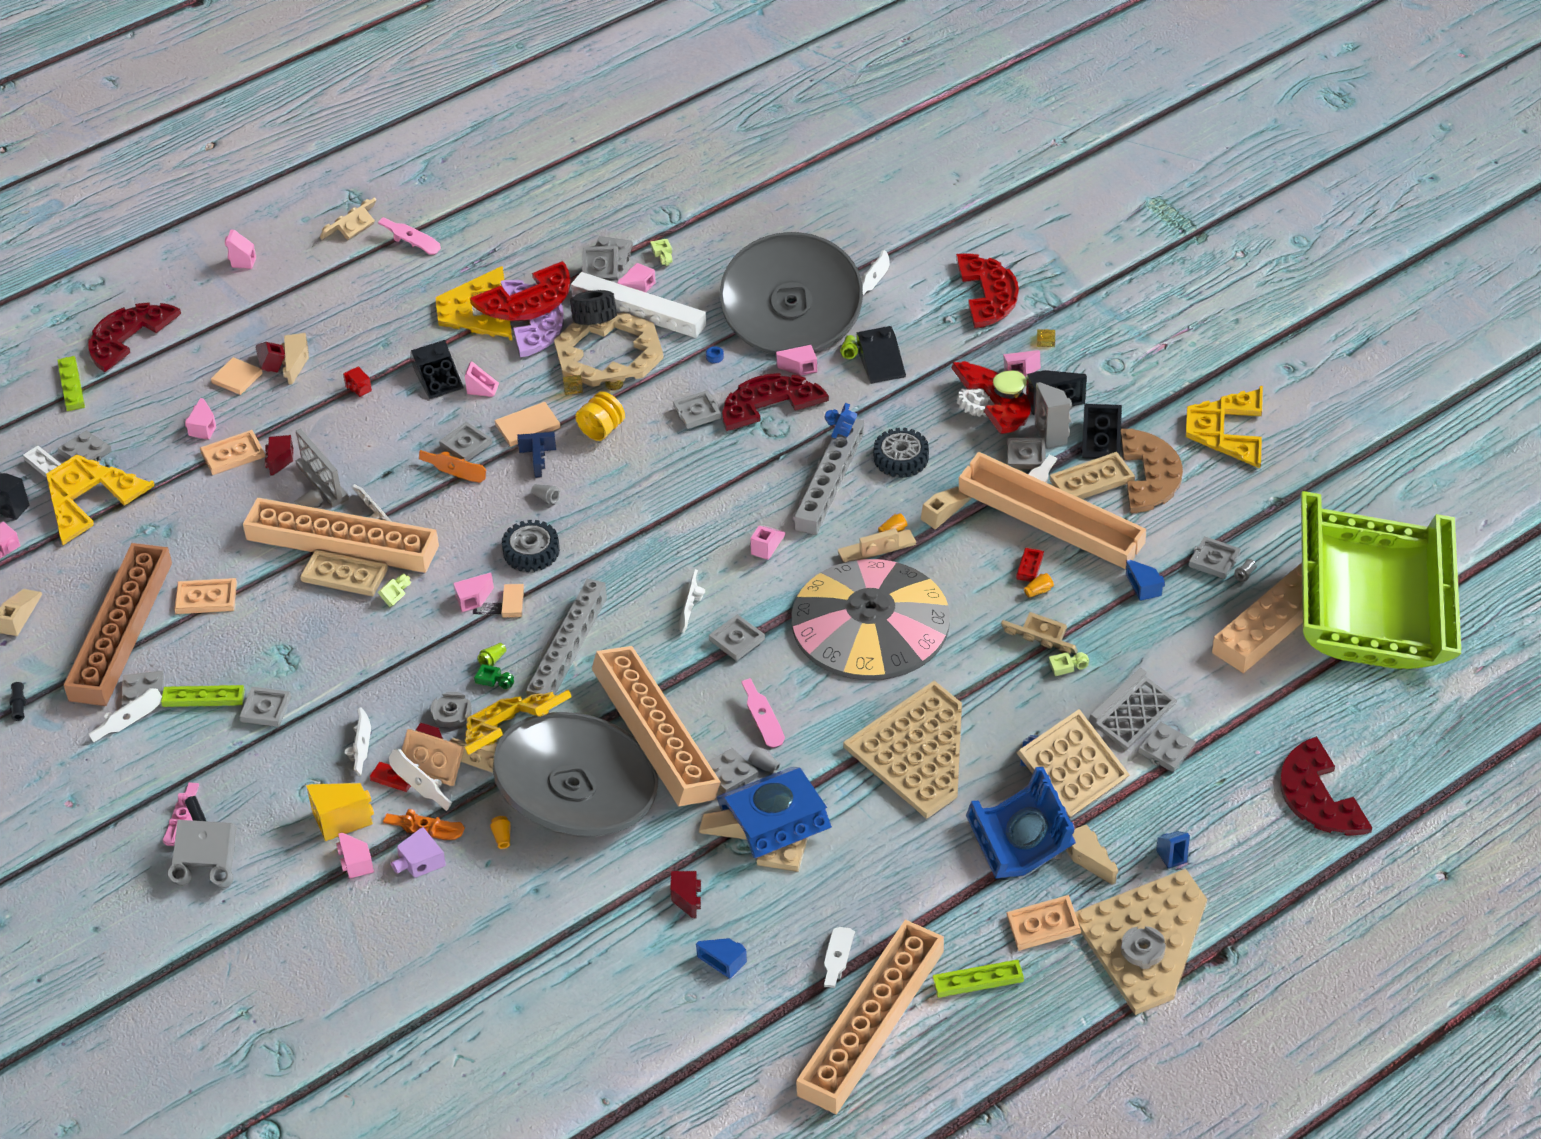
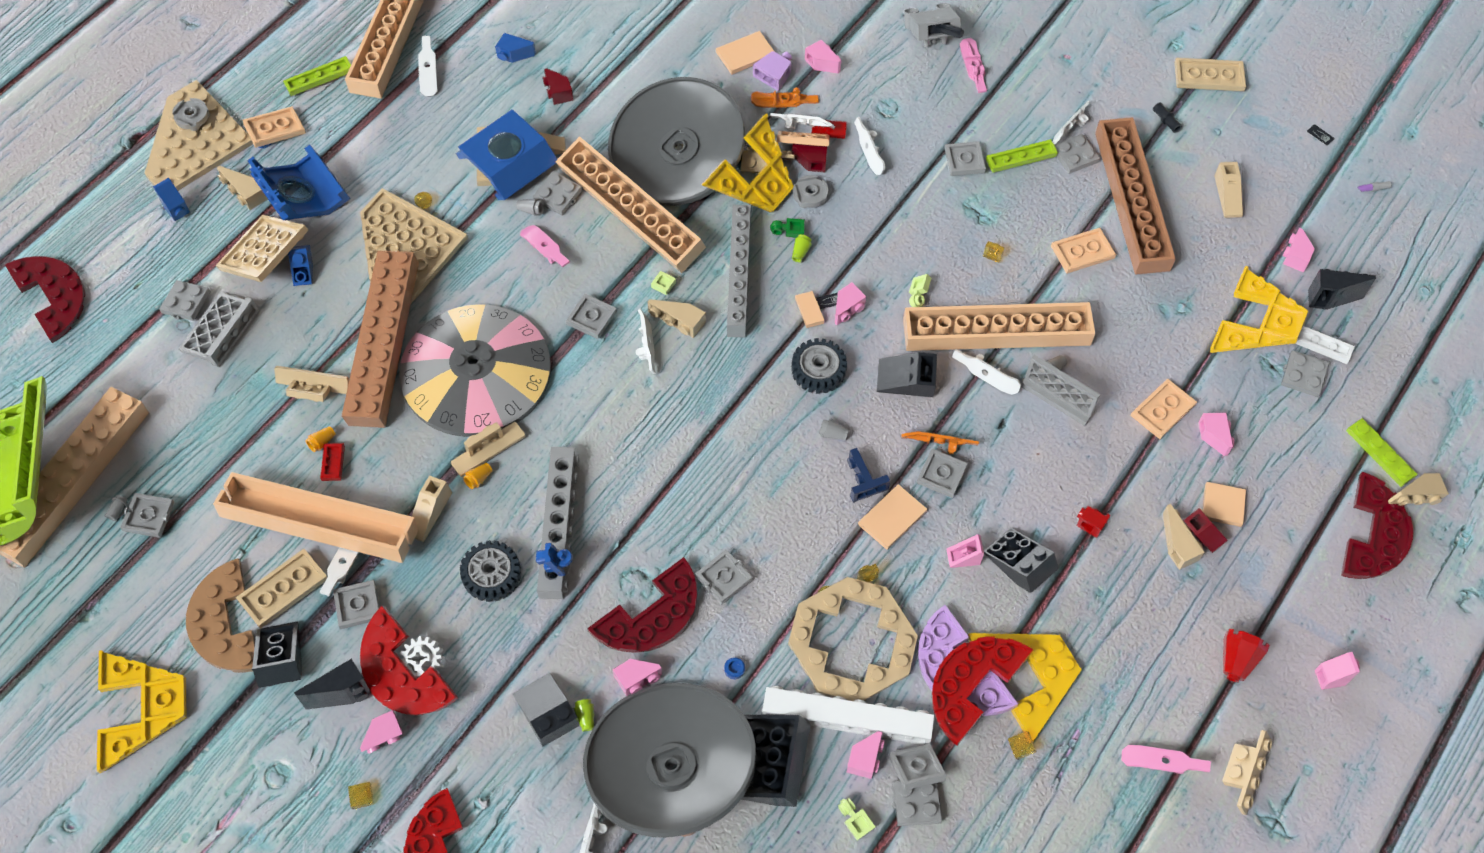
camera: 160 degrees right, 15 degrees up
(69, 341) = (1425, 489): none -> tan slope
(279, 453) = (1116, 411): dark red slope -> none
(298, 607) = (993, 251): none -> clear yellow plate
(302, 275) = (1241, 654): none -> red cone
(340, 808) = (852, 79): yellow slope -> none
(344, 573) = (973, 292): tan plate -> none
(440, 891) = (744, 52): none -> light nougat tile
(450, 516) = (908, 374): none -> slope
(511, 265) = (1022, 745): none -> clear yellow plate
(593, 307) = (906, 677): black tyre -> none
(600, 416) = (816, 525): yellow wheel -> none
(646, 616) = (680, 315): none -> tan slope
(650, 652) = (663, 282): none -> yellowish green plate
(704, 290) = (779, 758): none -> black slope
(765, 541) = (595, 422): bright pink slope -> none
(882, 797) = (426, 202): none -> clear yellow plate
(958, 650) = (380, 339): none -> nougat brick
(1009, 384) = (383, 673): yellowish green piece -> none
(1052, 415) = (326, 634): light grey slope -> none
(1063, 664) = (286, 357): yellowish green plate -> none
(1144, 580) = (213, 466): blue slope -> none

